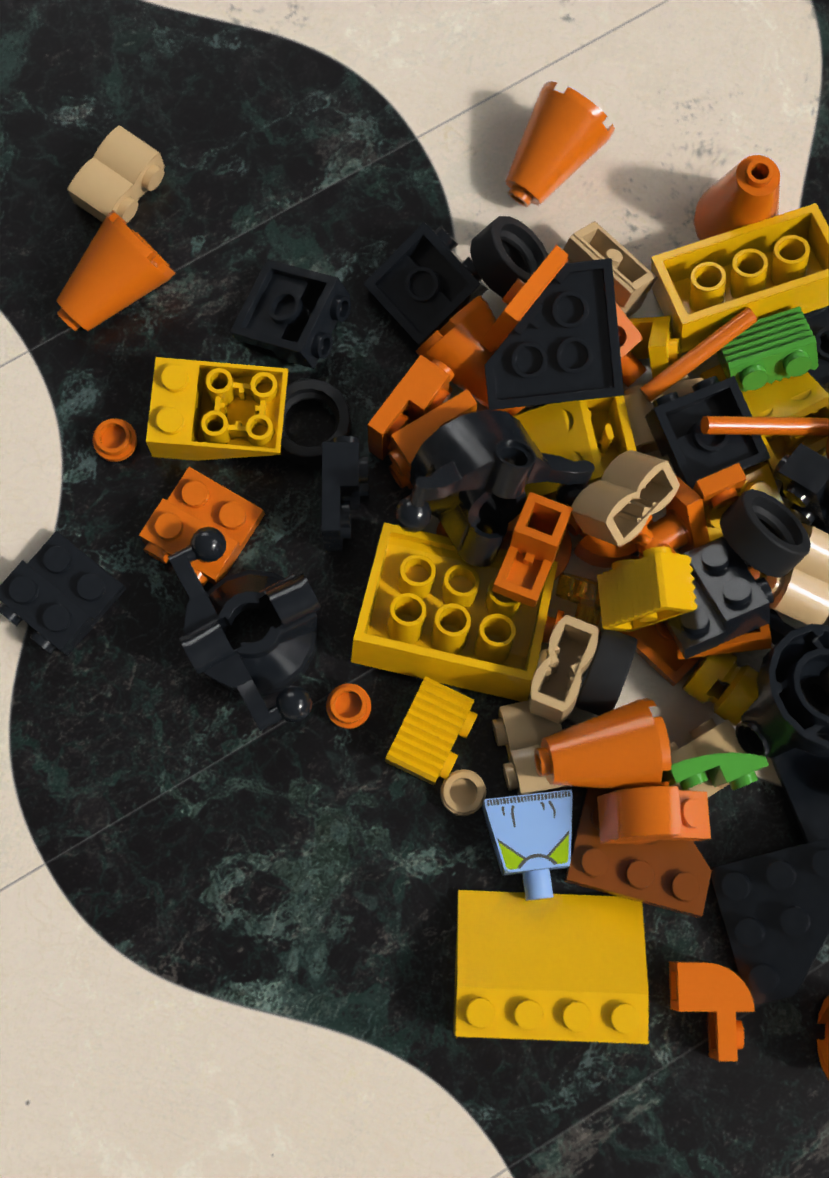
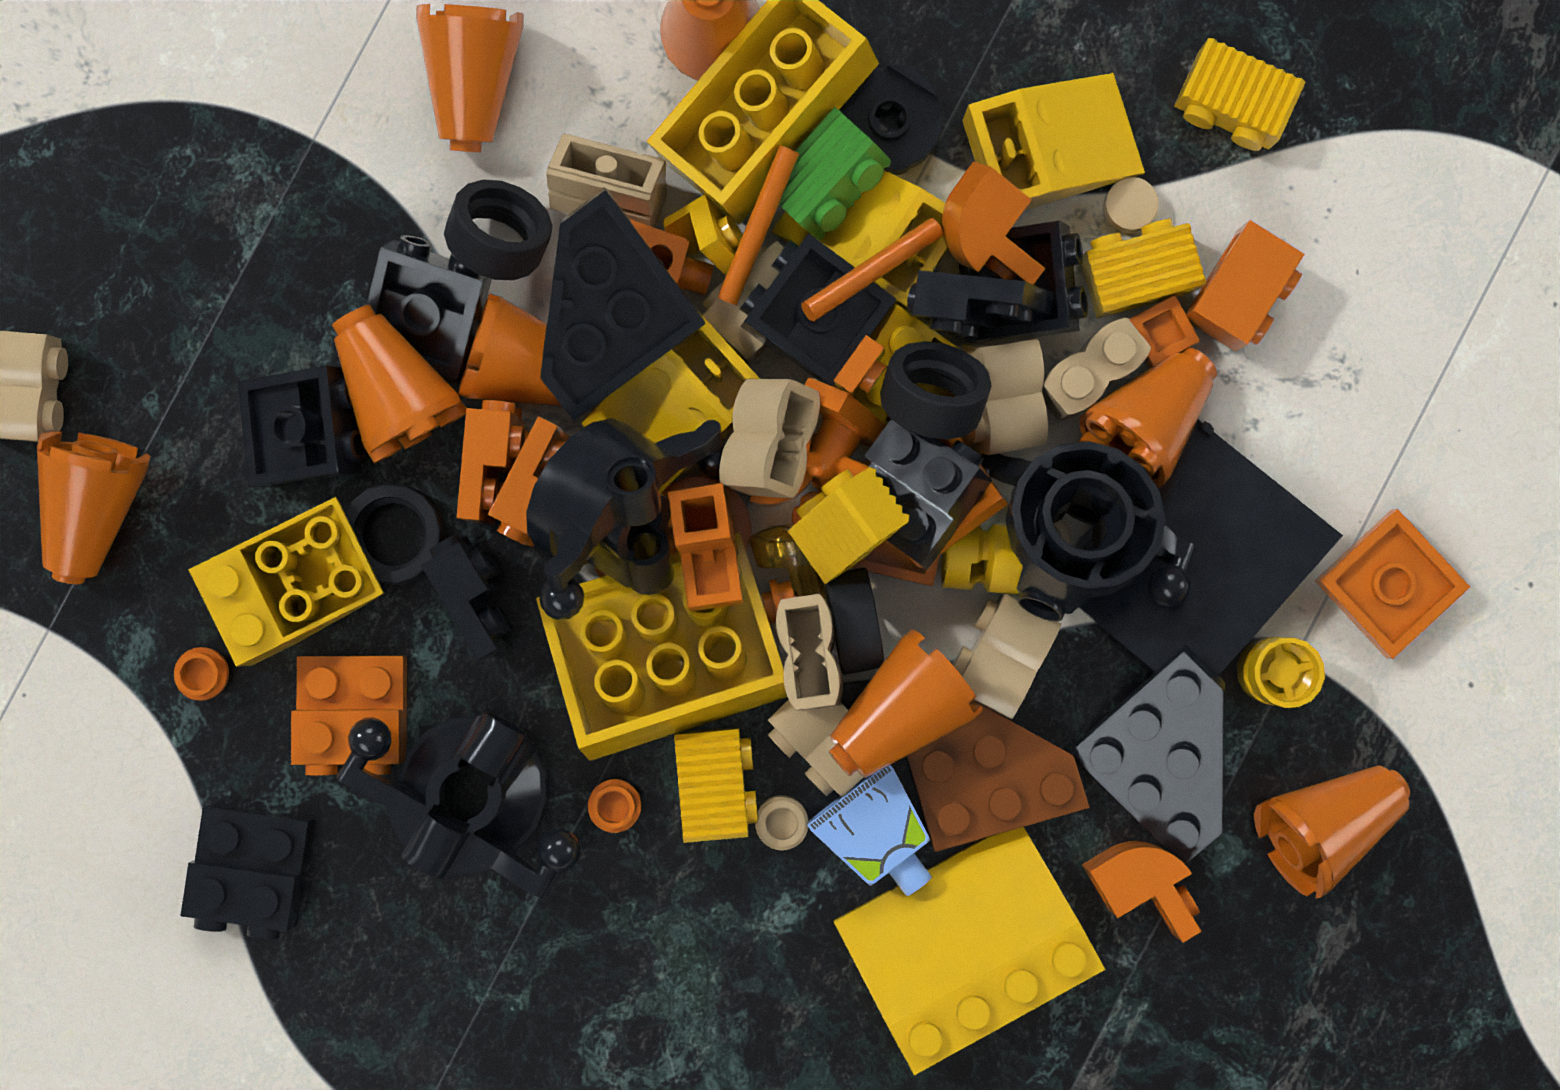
camera: 30 degrees left, 10 degrees up
(373, 318) = (391, 385): none -> orange cone
(522, 297) = (537, 286): orange plate -> none
(653, 815) = (986, 745): orange brick -> none
(721, 767) = (1032, 653): bright green slope -> none

